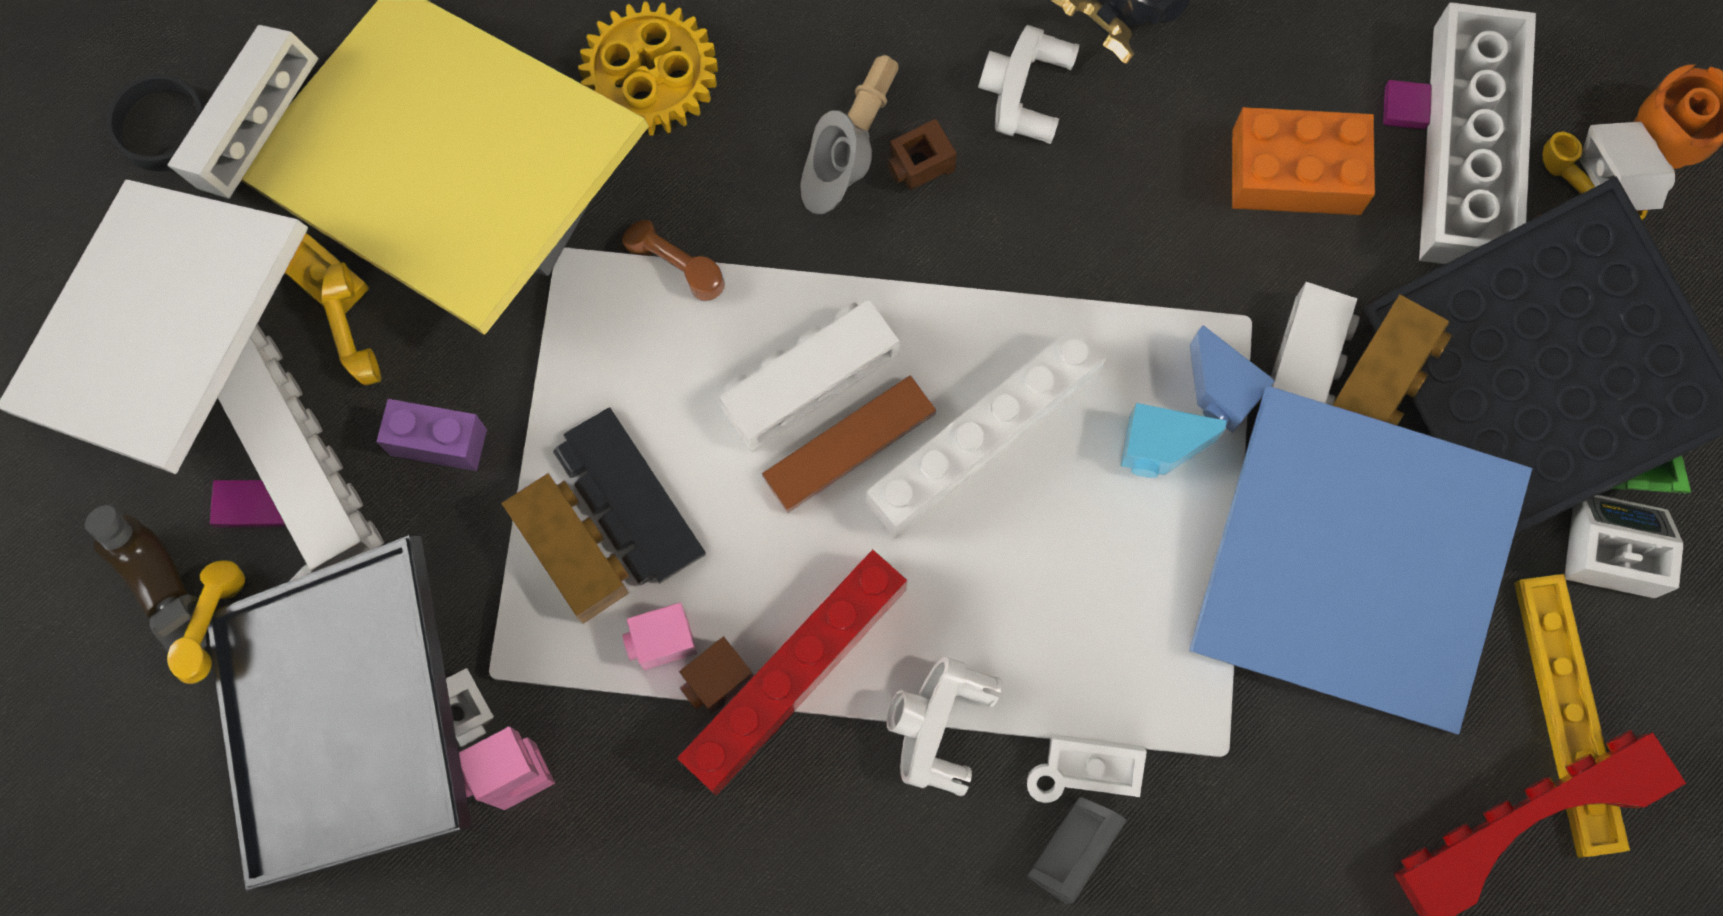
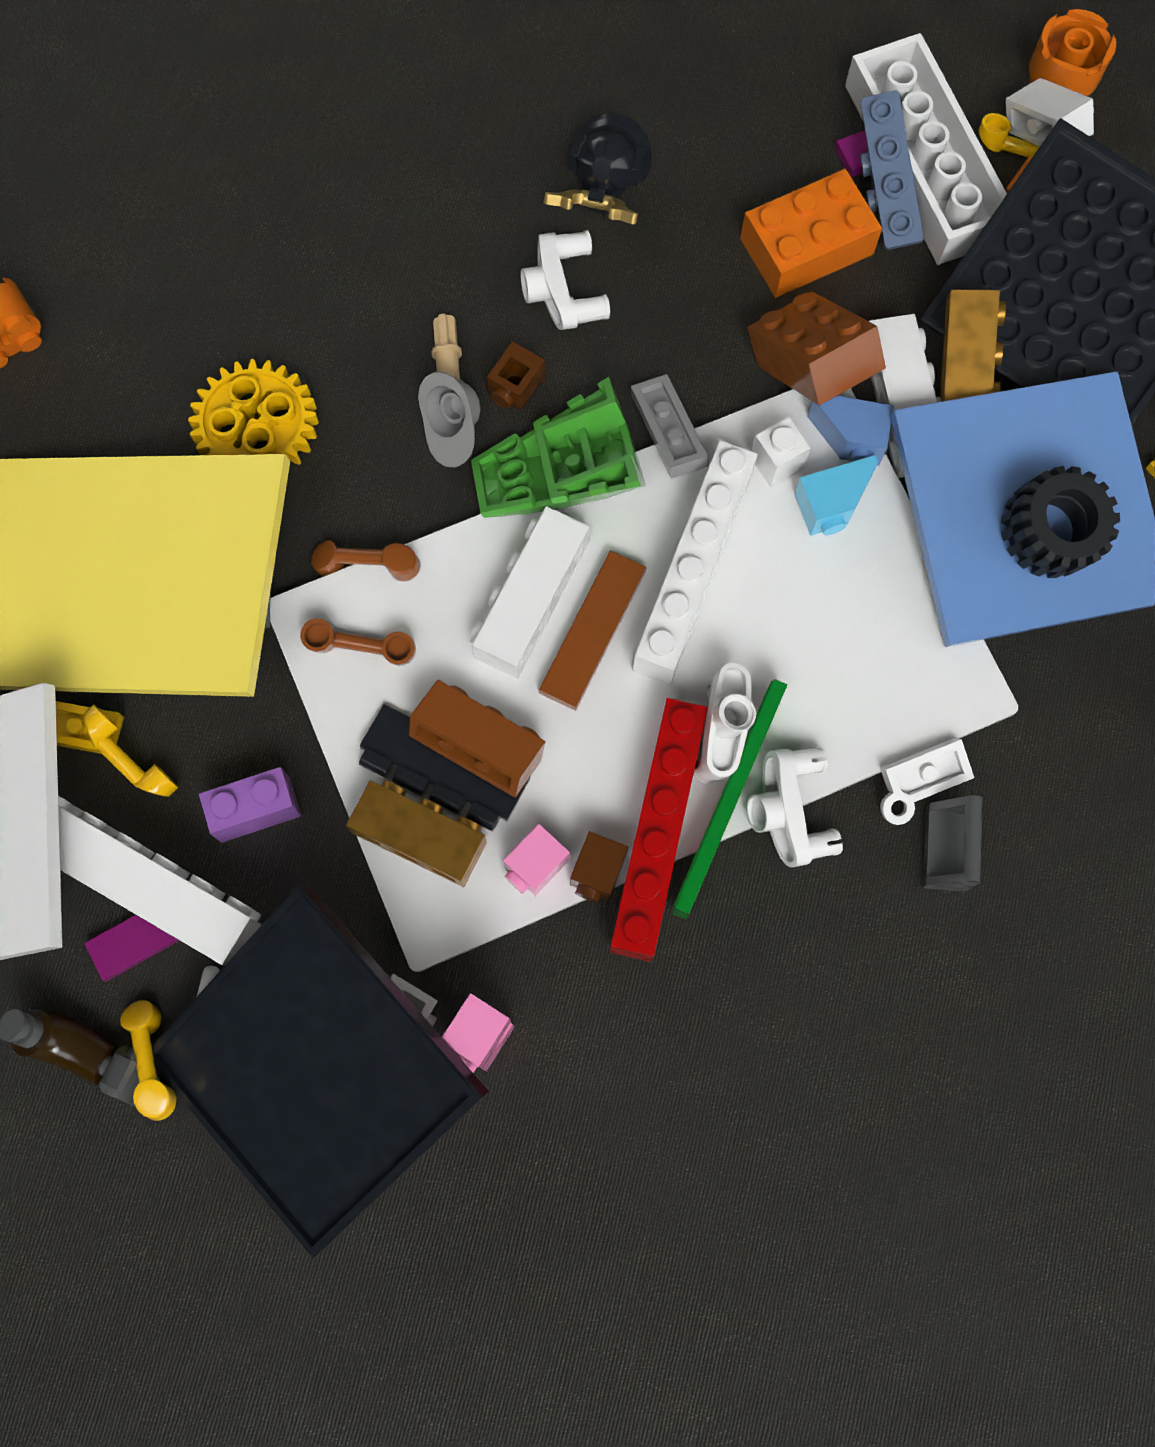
camera: 30 degrees left, 0 degrees up
(591, 312) = (322, 637): none -> dark orange bar
(674, 487) = (476, 737): none -> dark orange brick
(880, 680) = (728, 800): none -> green tile
(898, 623) = (721, 740): none -> white connector
(919, 262) = (562, 461): none -> bright green wedge
(1042, 283) = (669, 426): none -> light grey plate
(1135, 366) = (780, 451): none -> white brick
(1232, 281) = (817, 347): none -> dark orange brick
(1409, 582) = (1083, 503): none -> black tyre
(1418, 140) = (890, 171): none -> sand blue bracket

